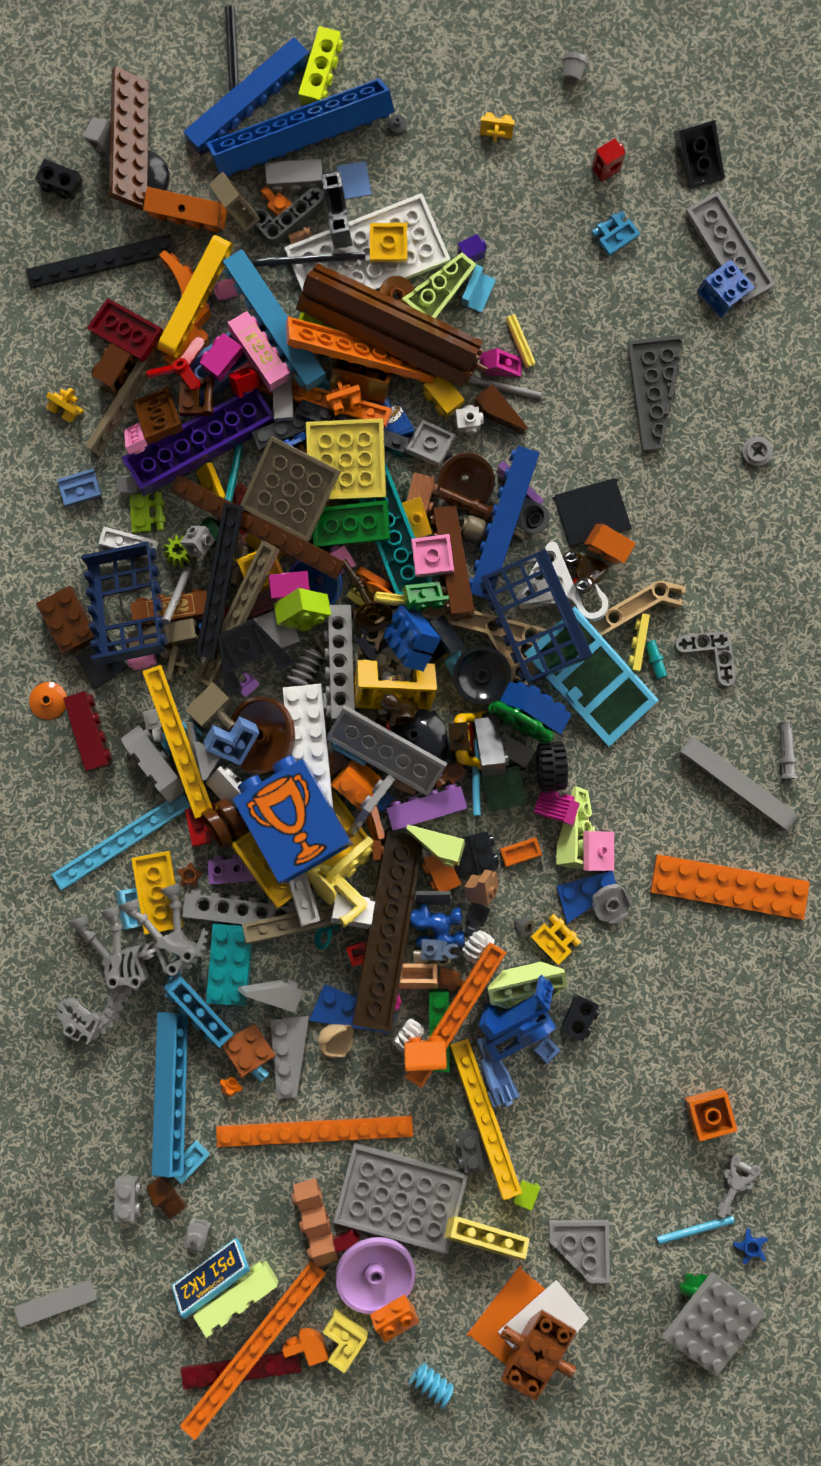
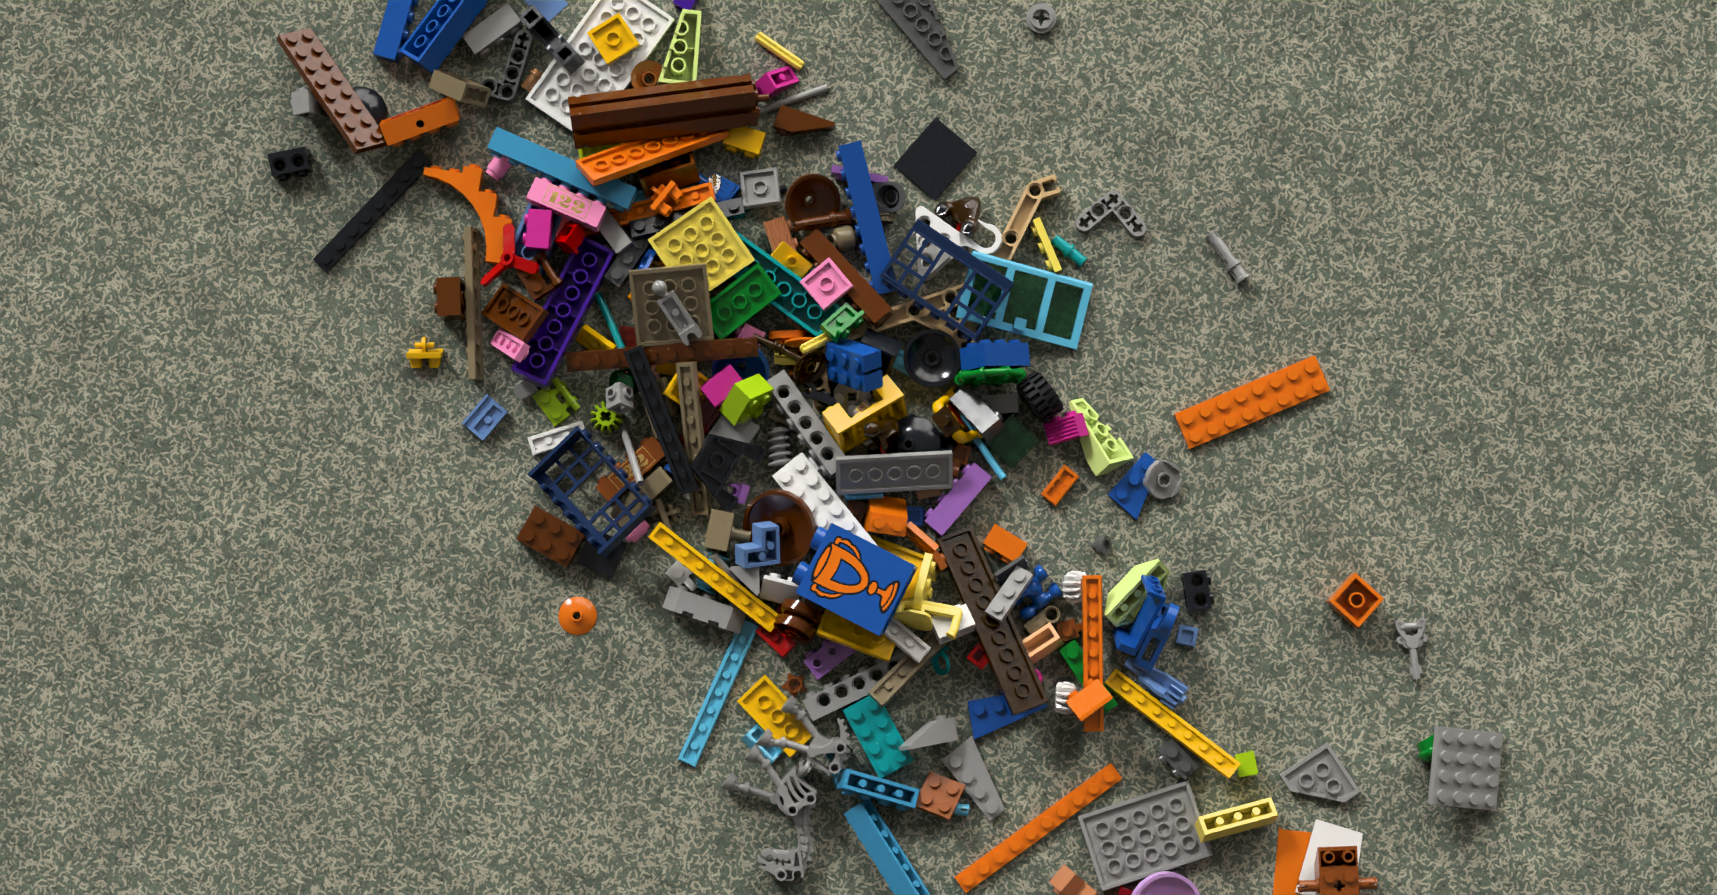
camera: 30 degrees left, 0 degrees up
(87, 731) = (629, 619): dark red brick -> none
(125, 329) = (436, 257): dark red plate -> none
(195, 296) = (479, 191): yellow beam -> none
(230, 1086) = (944, 836): orange plate -> none
(272, 261) = (523, 118): black bar -> none
(277, 203) = (494, 63): orange plate -> none
(289, 496) = (676, 312): none -> light grey plate
(336, 1040) = (1007, 740): tan hair -> none
(371, 802) = (909, 523): light grey wing -> none
(417, 917) = (1009, 594): none -> light grey plate
(437, 950) = (1043, 610): sand blue brick -> none
(442, 846) = (991, 522): yellowish green slope -> none
(469, 419) = (780, 154): white brick -> none
(477, 290) = (715, 30): medium azure panel -> none
(477, 855) = (1022, 512): black plate -> none
(477, 916) = (1057, 562): black plate -> none
(482, 888) = (1046, 536): medium nougat brick -> none
(551, 943) = (1132, 544): yellow plate -> none
(598, 851) = (1123, 442): bright pink plate -> none
(609, 543) = (966, 178): orange brick -> none
(695, 1229) = (1403, 703): medium azure bar -> none
(739, 783) = (1204, 310): light grey beam -> none
(751, 1246) = (1457, 687): blue animal -> none

